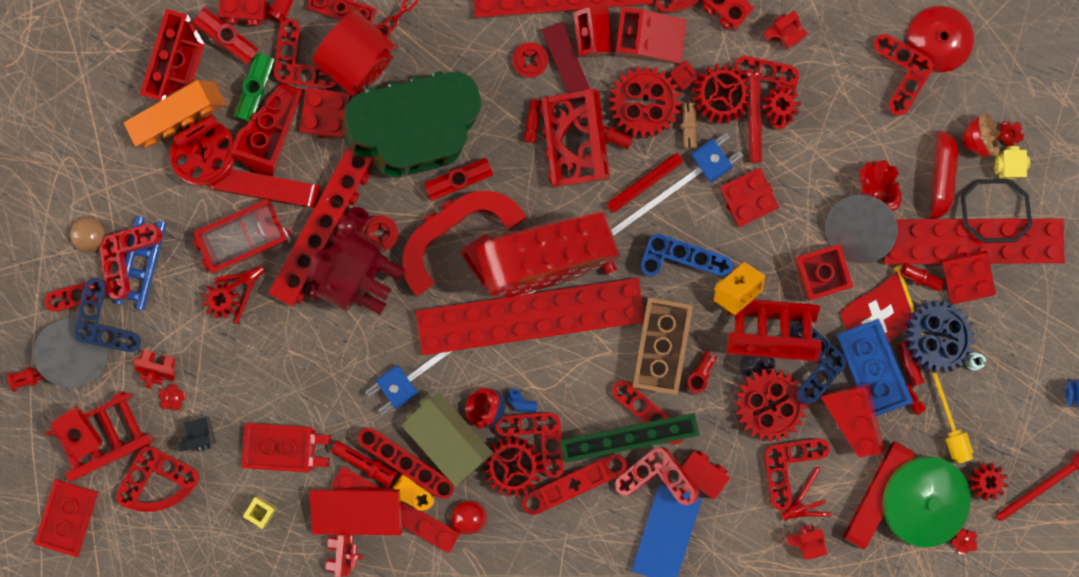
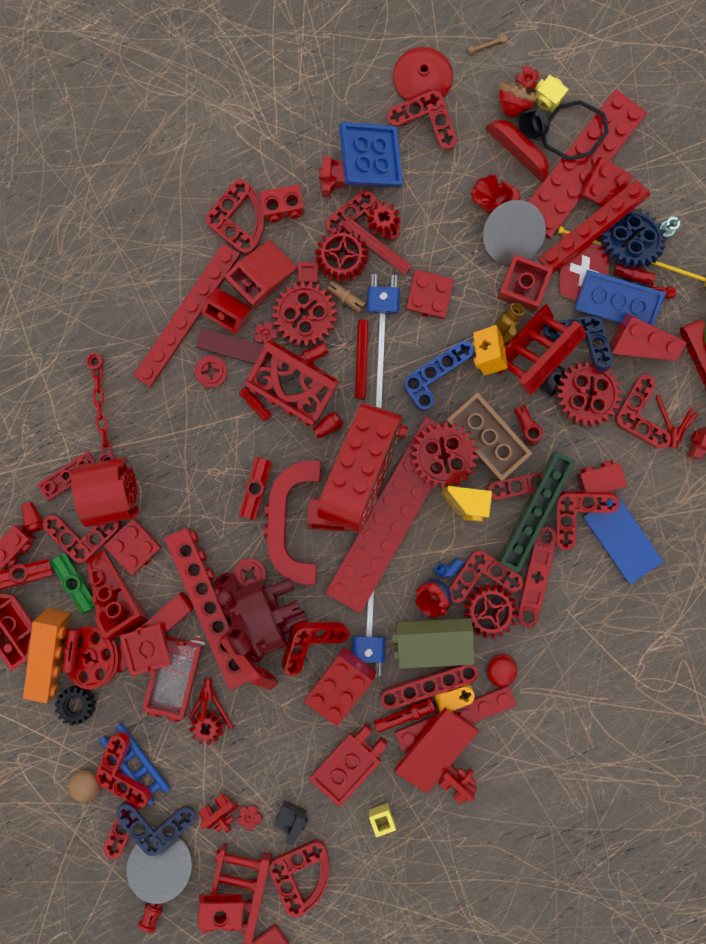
camera: 45 degrees left, 0 degrees up
(139, 165) = (66, 713): none -> black tyre
(247, 194) = (146, 649): none -> red plate
(301, 304) = (255, 673): none -> red beam
(346, 386) = (340, 686): none -> red brick
(367, 326) = (334, 633): none -> red beam
(413, 123) = (188, 490): dark green brick -> none
(564, 199) = (328, 425): none -> red cone
(590, 370) = (468, 502): none -> yellow slope
(601, 80) = (265, 333): none -> red plant
(631, 332) = (463, 451): none -> red gear
(779, 285) = (510, 320): none -> pearl gold piece
(830, 49) = (370, 155): none -> blue plate
(921, 277) = (578, 218): red axle -> none
(921, 294) = (594, 226): none -> red plate
(973, 170) = (534, 123): none -> black hair
(1029, 83) = (502, 39): none -> medium nougat hinge

